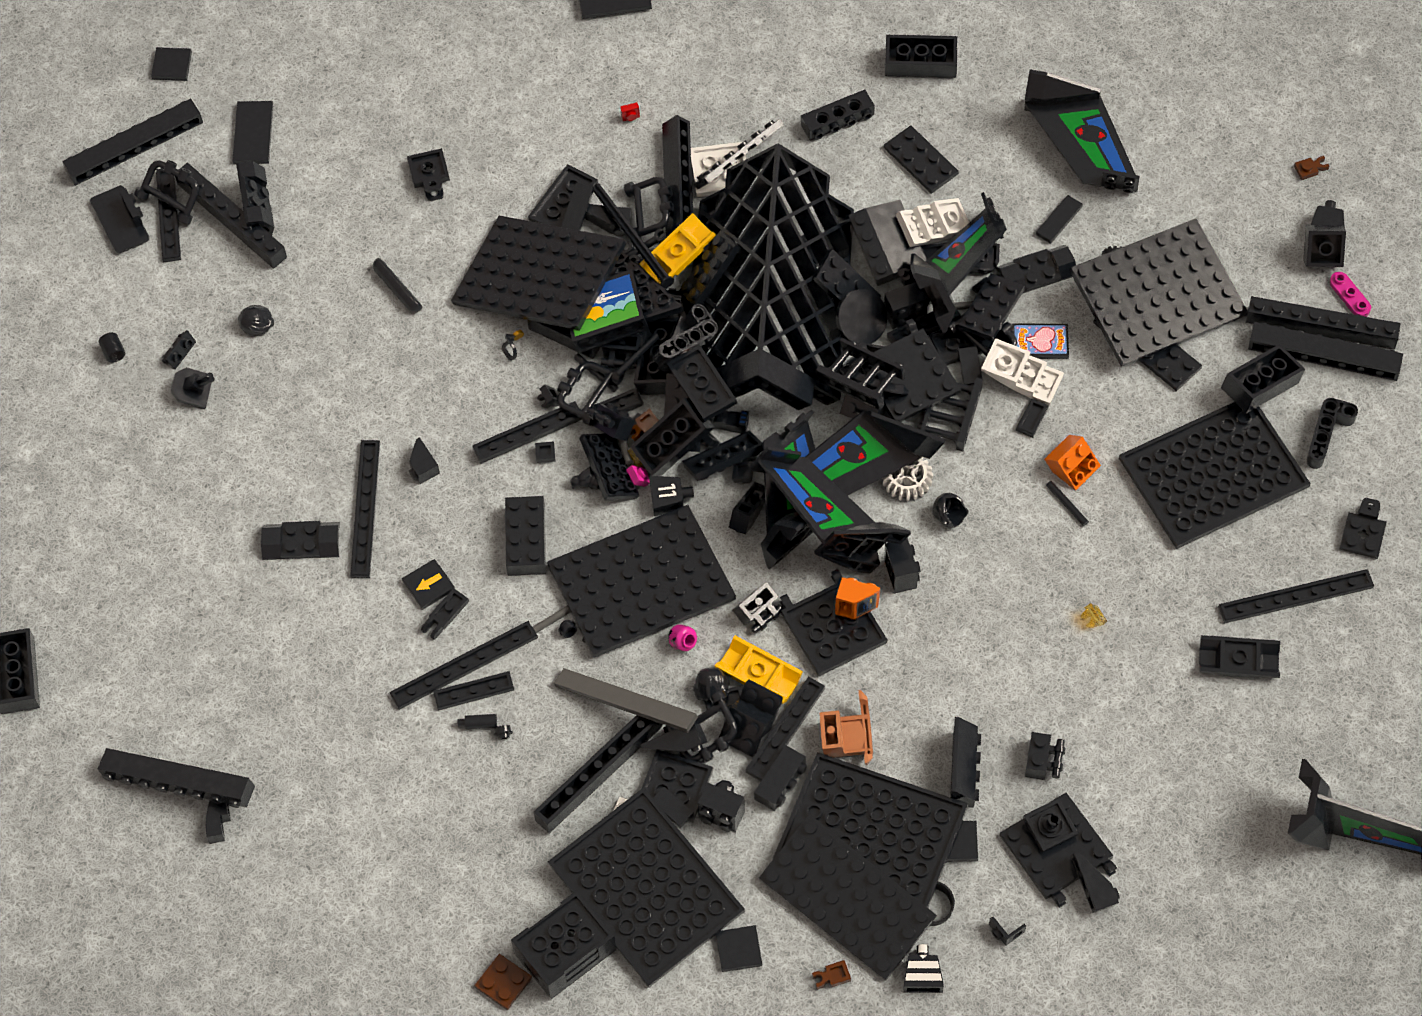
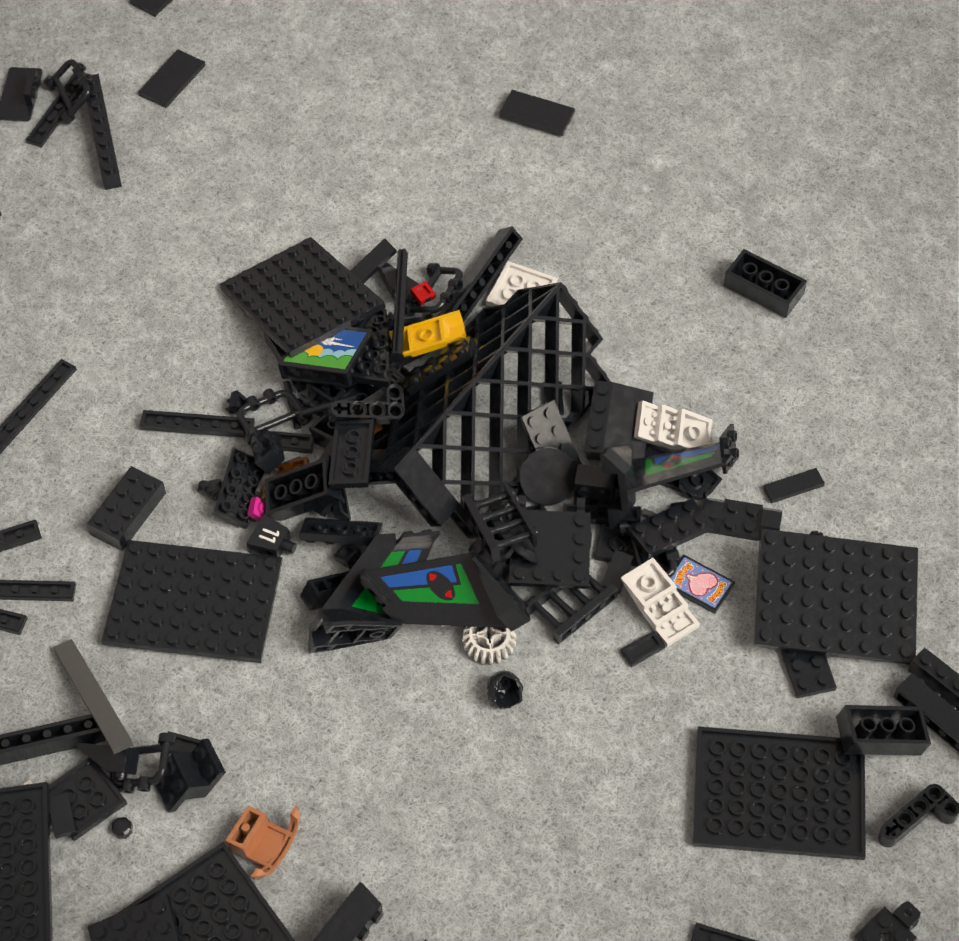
camera: 30 degrees right, 5 degrees down
(132, 142) = (75, 41): black brick -> none
(255, 195) = (129, 124): black piece -> none
(255, 320) = (56, 221): black hair -> none
(396, 286) = (187, 251): black piece -> none
(422, 463) = (92, 402): black slope -> none
(428, 584) = (21, 505): black tile -> none
(432, 178) = (278, 182): black plate -> none
(510, 338) = (250, 340): black piece -> none
(545, 452) = (198, 448): black plate -> none
(551, 619) = (94, 592): dark grey bar -> none
(554, 203) = (354, 251): black plate -> none
(567, 628) = (101, 607): black plate -> none
(630, 112) = (480, 207): red plate -> none
(642, 214) = (423, 293): none -> red plate
(682, 637) = (187, 670): dark pink head -> none
(709, 682) = (181, 723): black hair -> none
(721, 808) = (100, 841): black brick -> none
(731, 157) = (569, 279): wing -> none
(732, 421) = (372, 506): black leg -> none
(747, 662) = (231, 738): yellow piece -> none
(754, 604) = (268, 676): brick -> none
(780, 778) = (175, 846): black brick -> none
(785, 728) = (214, 804): black plate -> none
(827, 637) = (325, 735): black plate -> none
(838, 522) = (377, 625): black piece -> none
(850, 109) = (656, 296): black brick -> none
(856, 598) = (354, 720): orange slope -> none
(901, 566) = (421, 714): black brick -> none
(921, 159) = (704, 371): black plate -> none
(1067, 503) = (619, 745): black bar -> none
(1073, 461) = (650, 709): orange slope -> none
(1080, 130) = (861, 414): black piece -> none
(1096, 615) = (569, 863): clear yellow tile -> none

